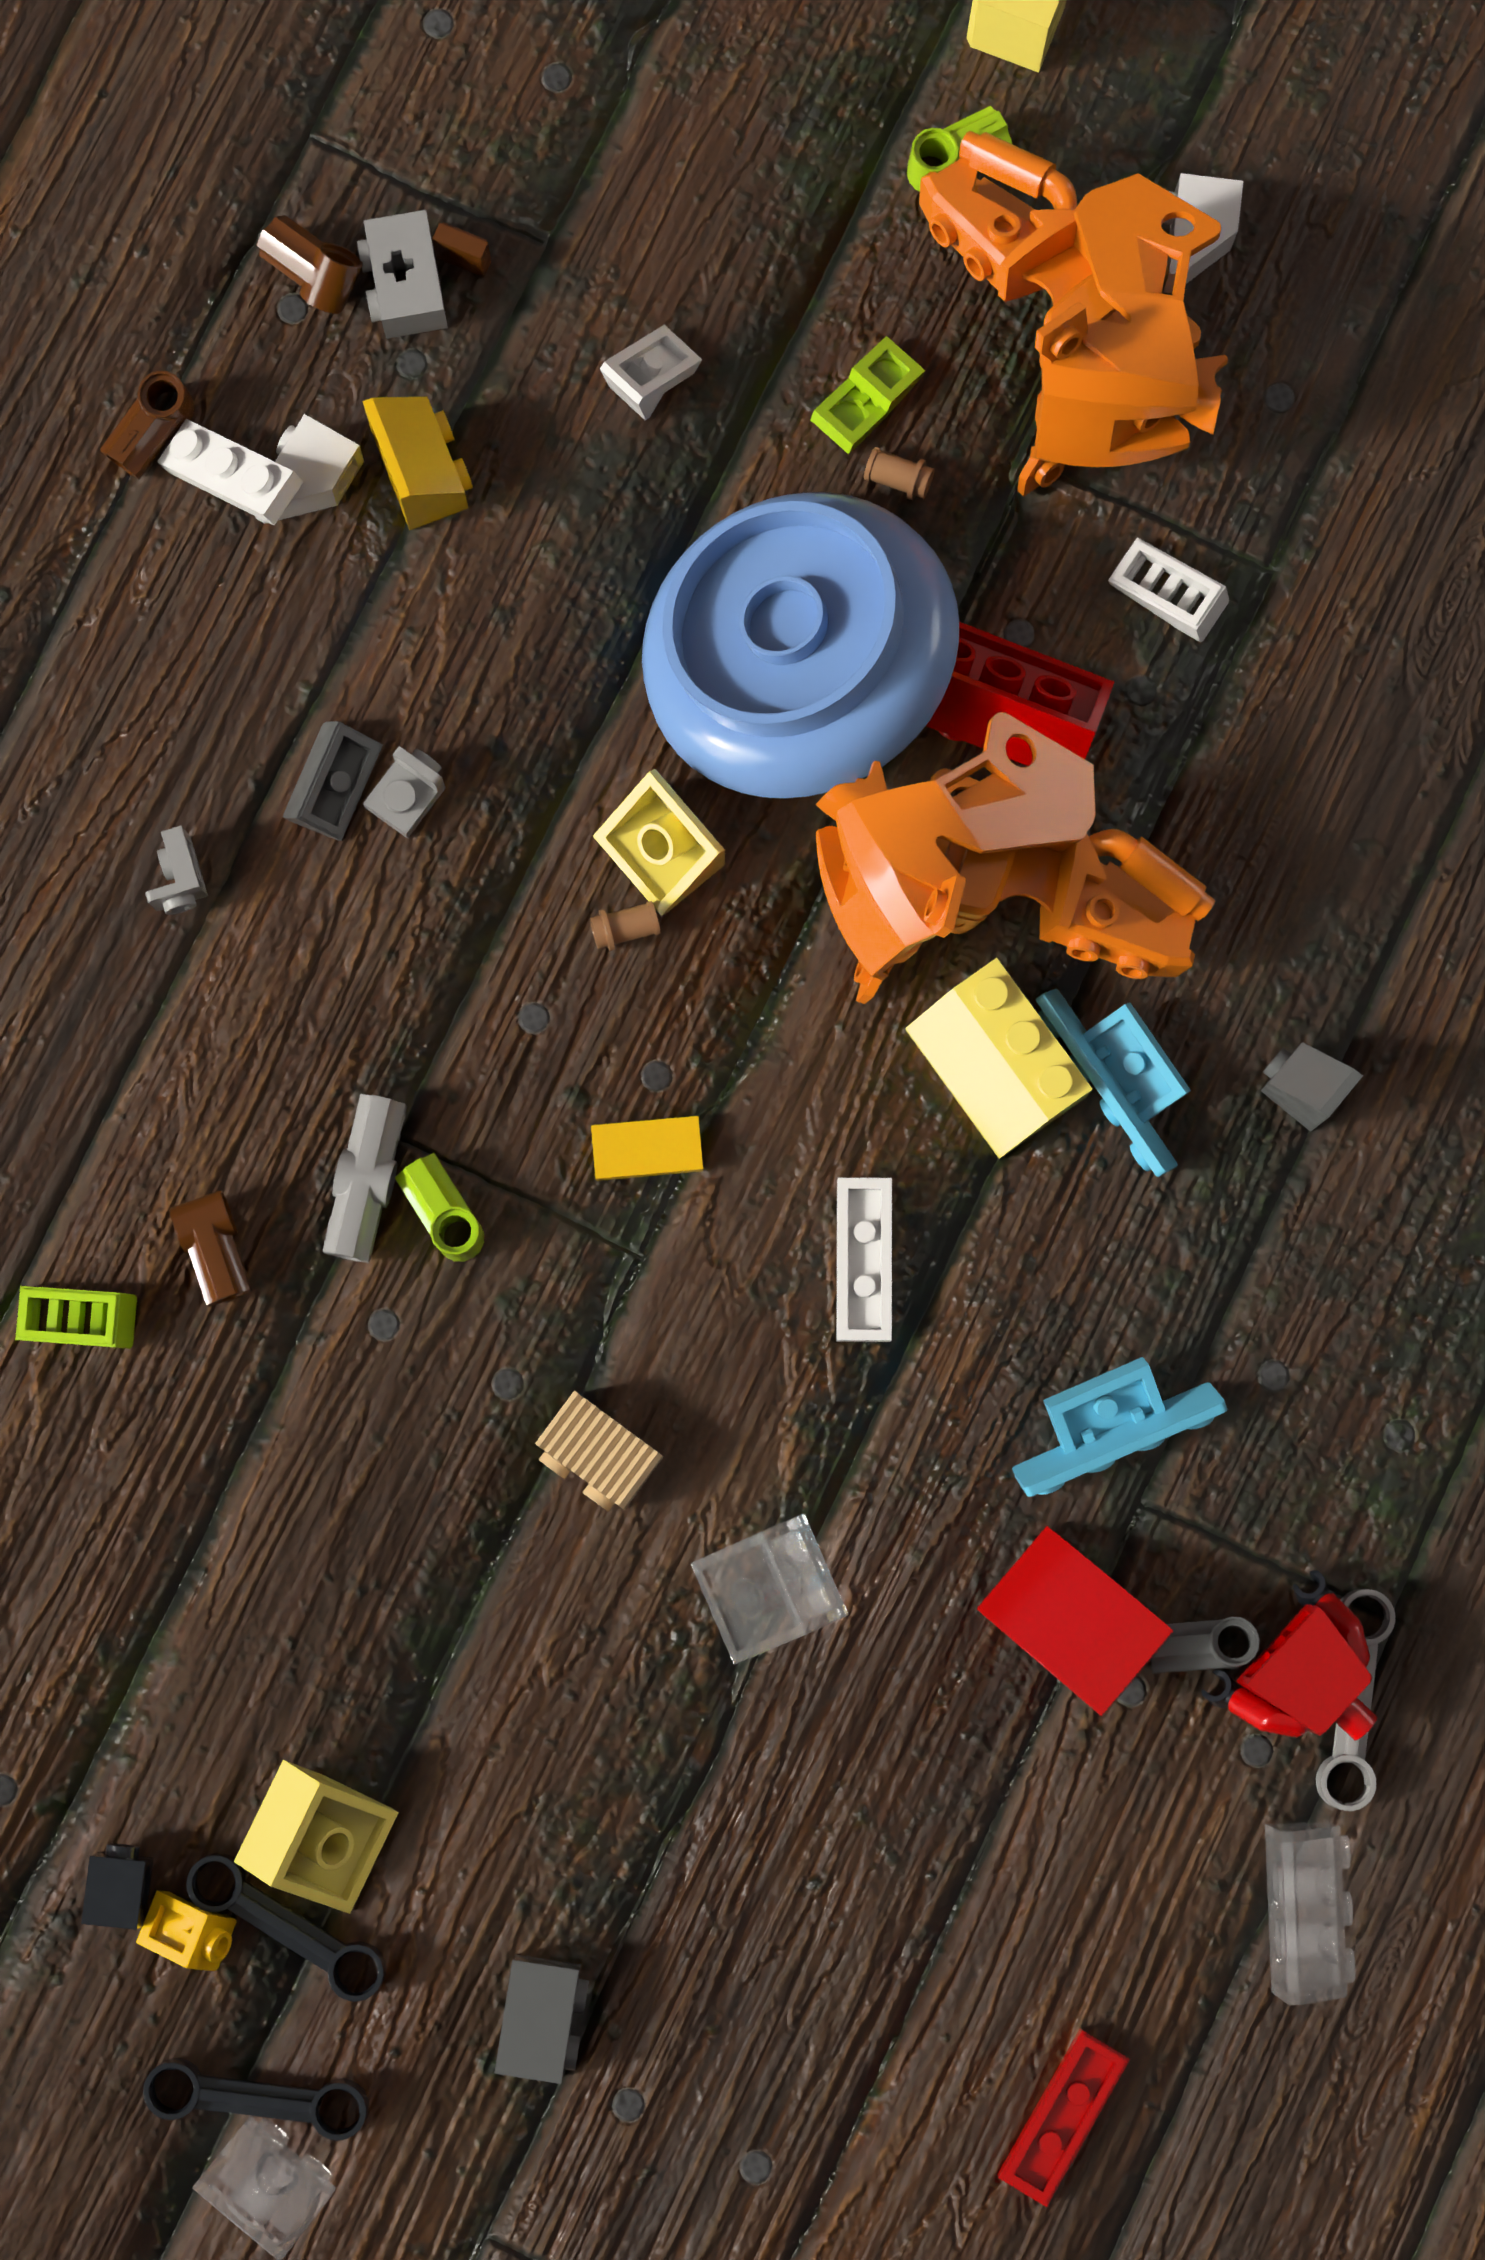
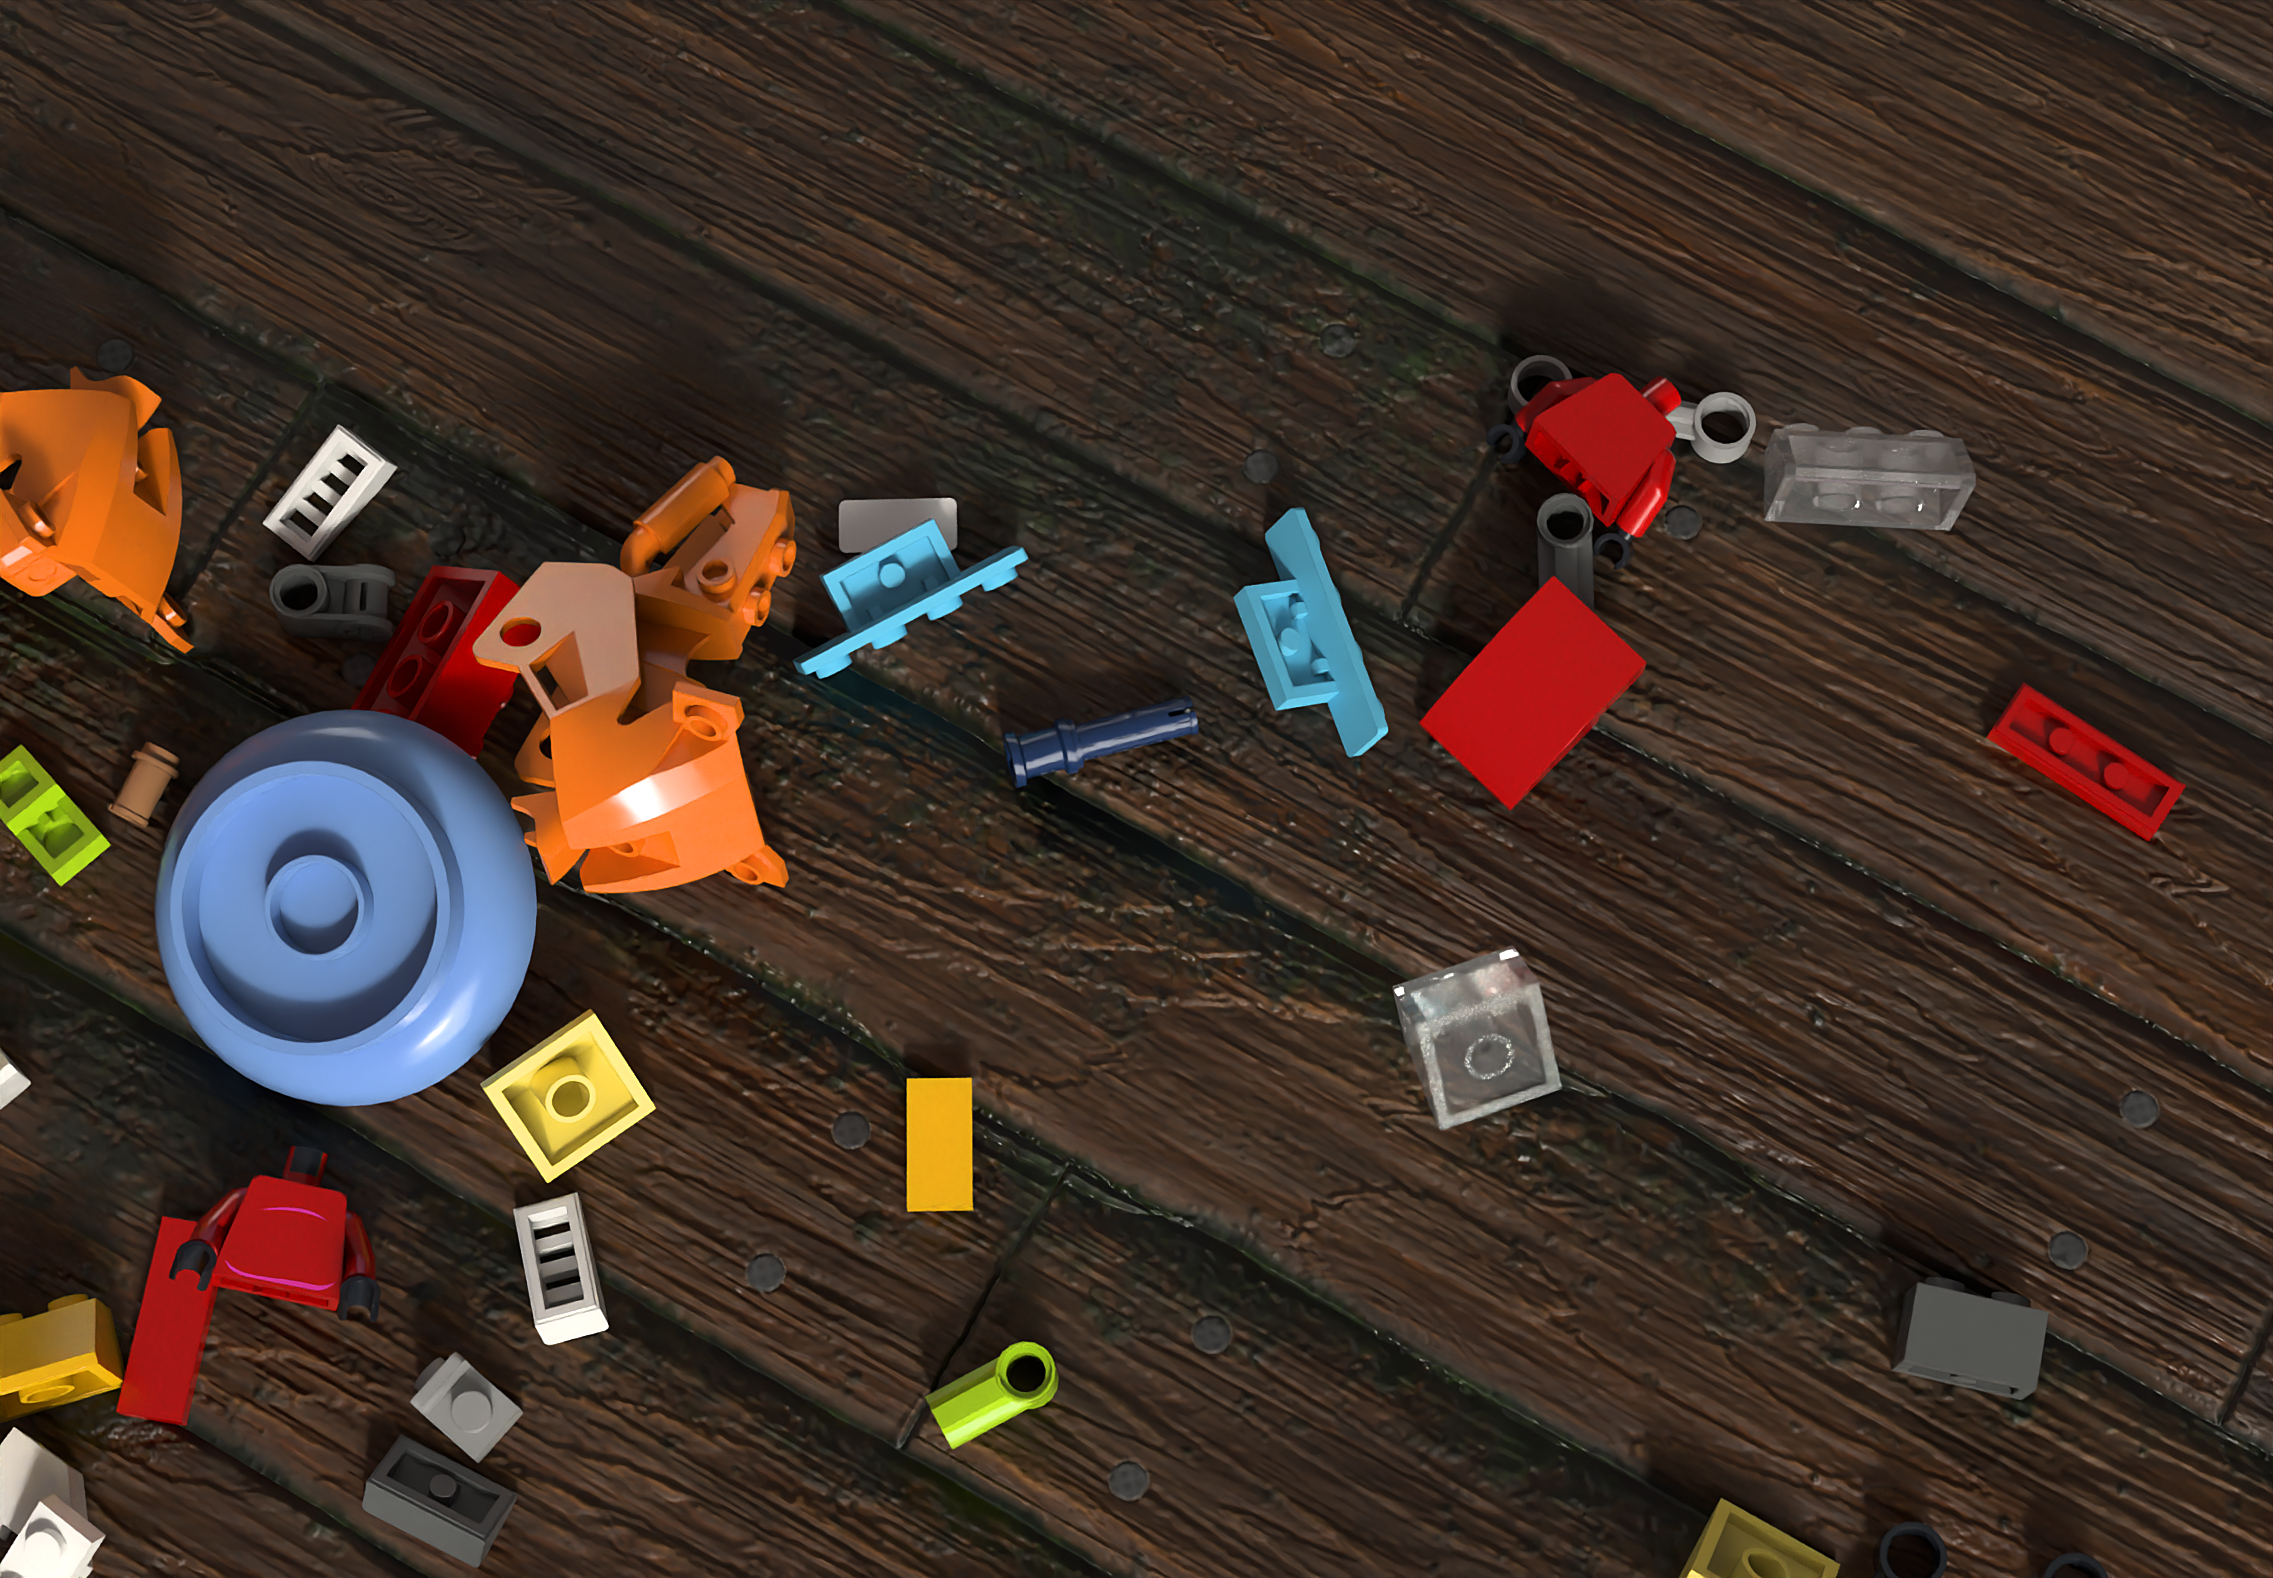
camera: 85 degrees left, 10 degrees down
(364, 1178) = (948, 1486): light grey piece -> none
(460, 557) = (167, 1335): none -> red tile
(508, 877) = (572, 1308): none -> white slope
(522, 634) = (286, 1241): none -> red torso
(598, 1452) = (1303, 1224): tan brick -> none
(624, 925) = (664, 1150): medium nougat pin -> none
(864, 1260) = (1095, 899): white plate -> none
(998, 1058) = (870, 726): light yellow slope -> none
(998, 1226) = (1070, 744): none -> dark blue pin
(1070, 615) = (339, 603): none -> dark grey piece
(1189, 1050) = (871, 522): none -> white sticker
(1308, 1084) = (936, 384): dark grey slope -> none

